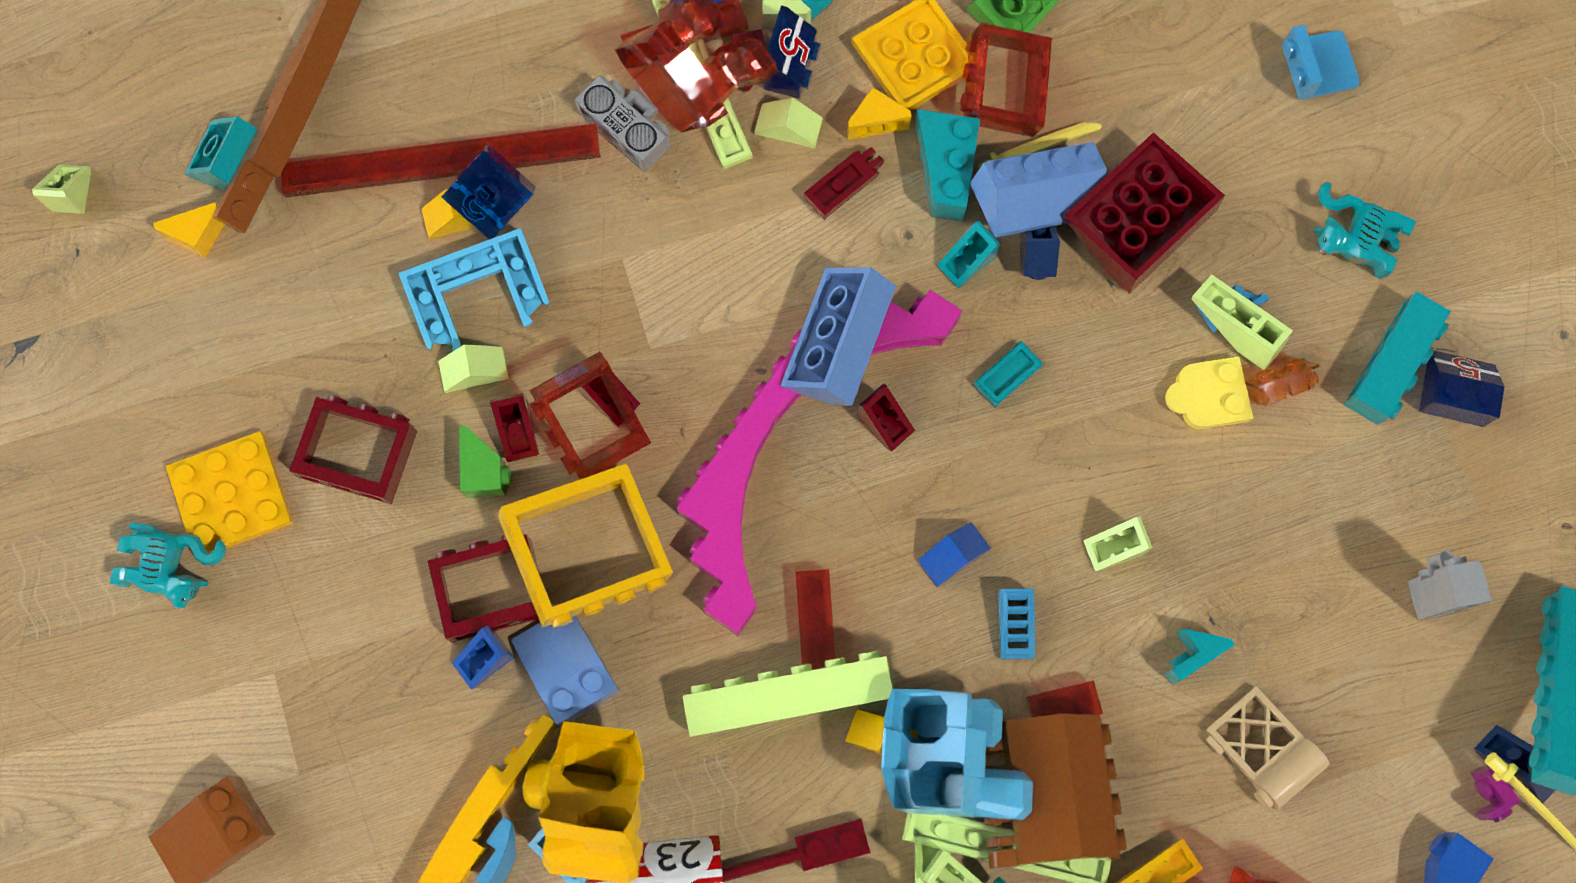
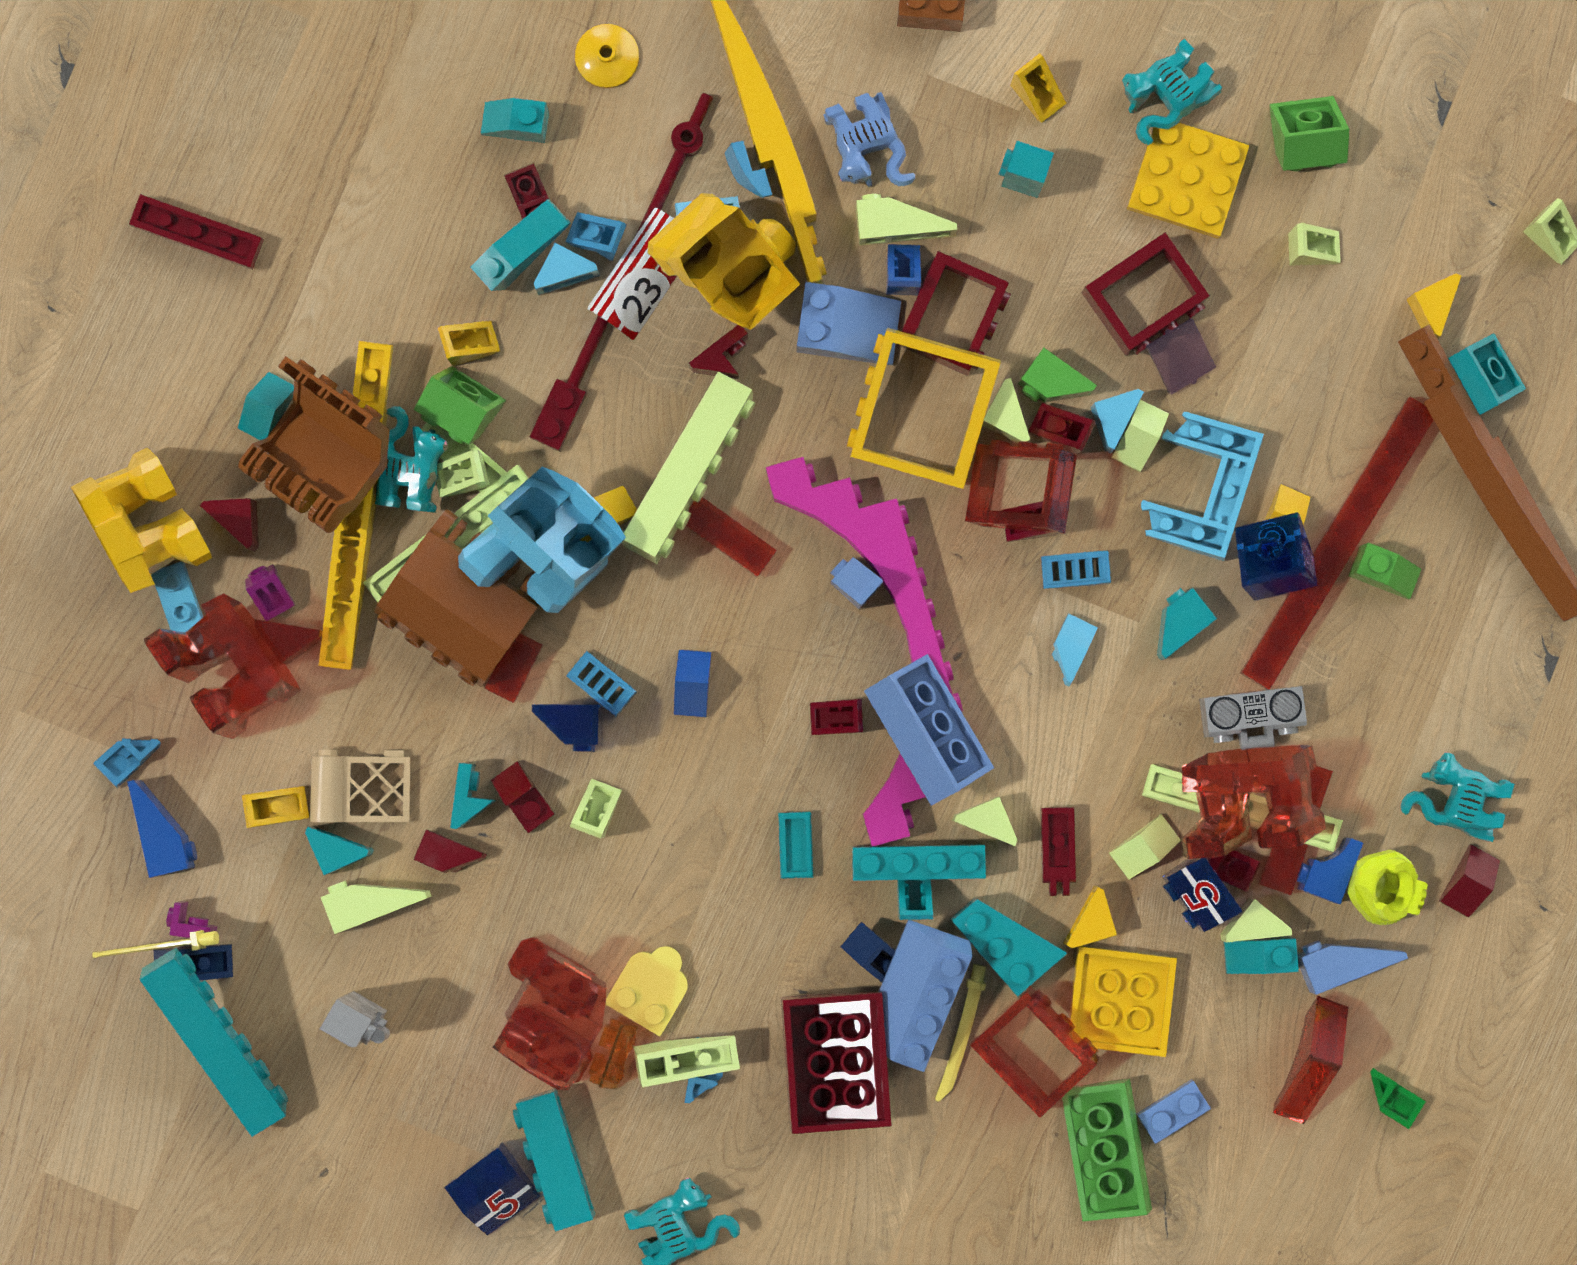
camera: 130 degrees right, 10 degrees up
(119, 426) = (1309, 133): none -> bright green slope
(215, 355) = (1313, 245): none -> yellowish green slope
(242, 670) = (1038, 88): none -> yellow slope
(319, 621) = (1025, 168): none -> teal brick
(384, 384) = (1181, 356): none -> piece
(391, 779) = (864, 137): none -> medium blue animal
(436, 114) = (1385, 570): none -> bright green slope
(447, 698) = (894, 221): none -> yellowish green slope
(473, 395) = (1113, 416): none -> medium azure slope
(538, 477) = (1006, 415): none -> yellowish green slope
(597, 224) = (1182, 621): none -> teal slope
(603, 311) = (1103, 564): none -> dark azure slope
(681, 289) = (1072, 646): none -> medium azure slope
(682, 749) = (714, 357): none -> dark red slope
(769, 486) = (855, 581): none -> medium blue slope
(866, 246) = (988, 819): none -> yellowish green slope
(928, 251) = (918, 862): none -> teal arch
(1071, 617) = (573, 724): none -> clear blue slope
(1157, 613) = (522, 797): none -> dark red slope
(1254, 635) = (445, 853): none -> dark red slope
(1302, 437) = (552, 1014): none -> clear red piece
(1331, 725) = (335, 851): none -> teal slope
(1346, 804) = (275, 806): none -> yellow slope
(1348, 666) = (361, 903): none -> yellowish green slope

